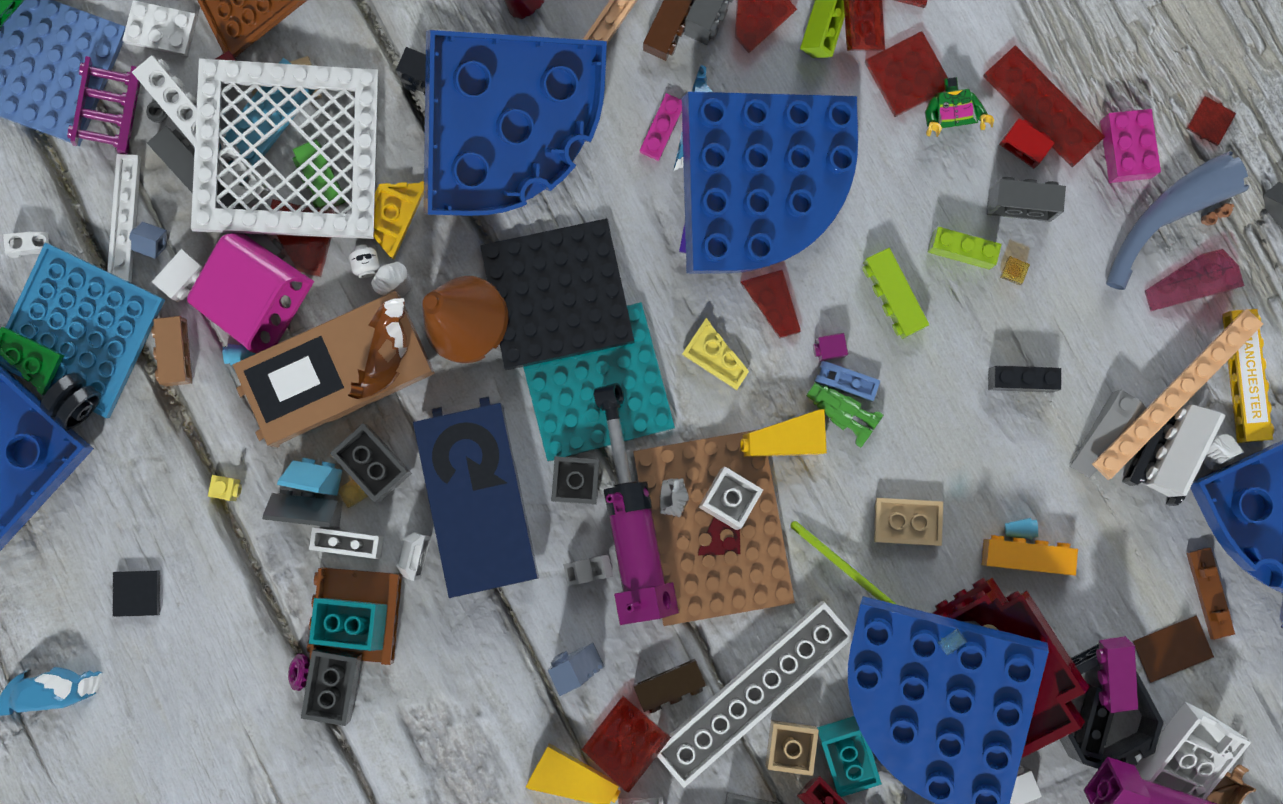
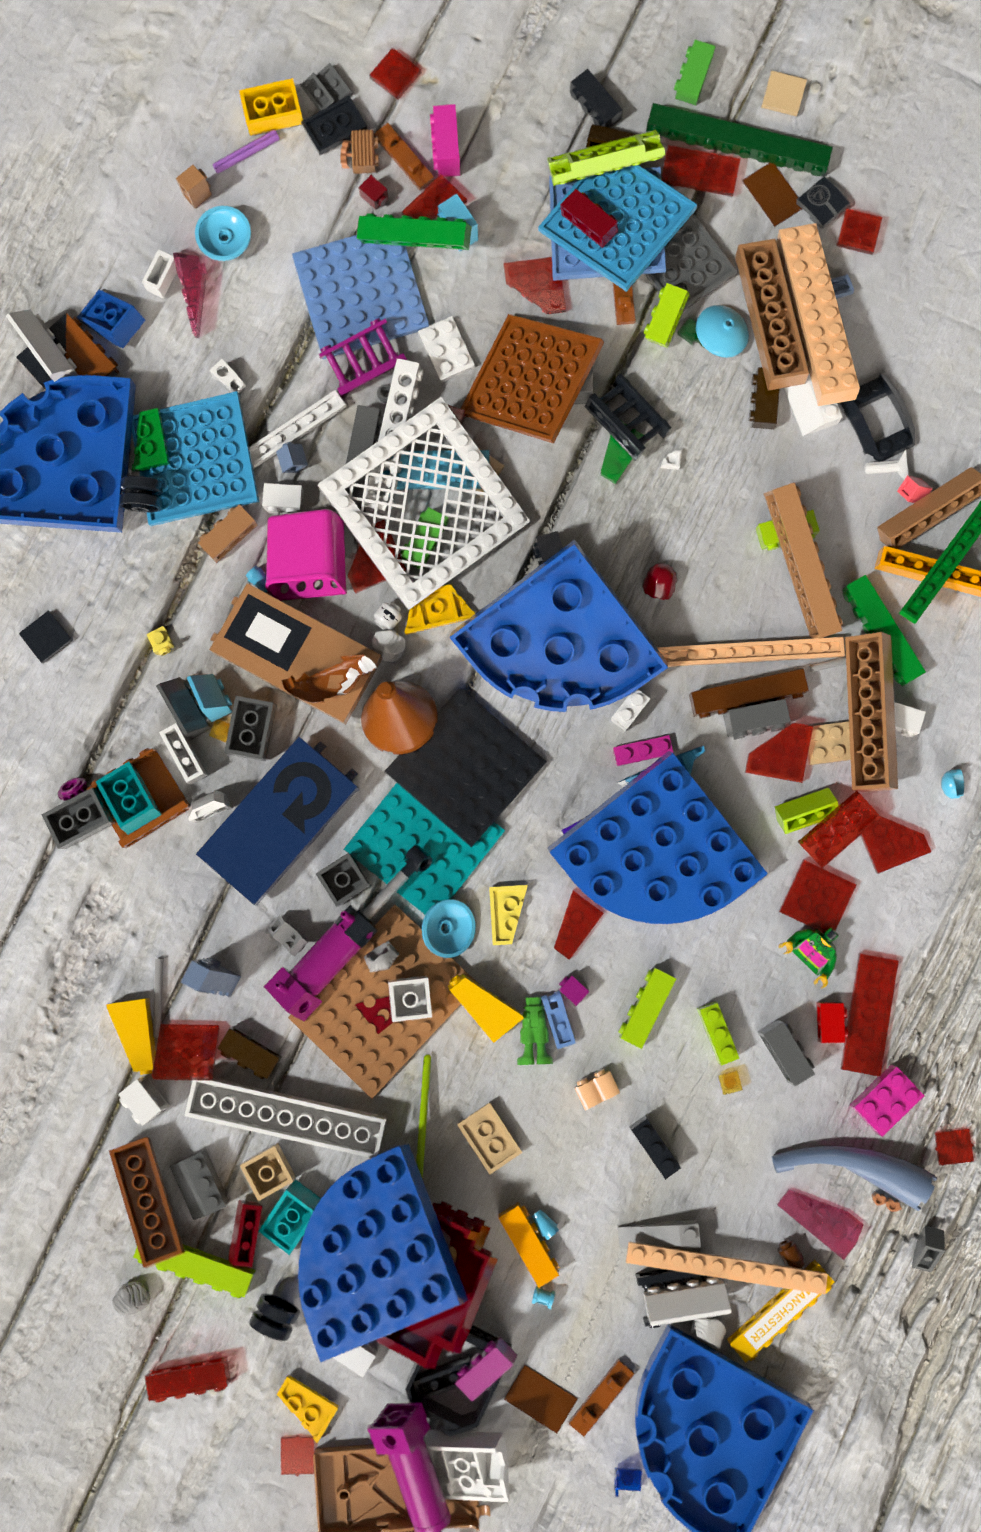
camera: 60 degrees right, 0 degrees up
(556, 735) = (158, 996): none -> light grey bar
(617, 109) = (630, 709): none -> white brick
(700, 413) = (457, 931): none -> medium azure dish
(935, 392) = (597, 1089): none -> light nougat brick
(952, 641) = (417, 1230): clear light blue piece -> none
(1085, 578) = (543, 1297): none -> medium azure bush
(1204, 330) = (791, 1254): none -> reddish brown brick

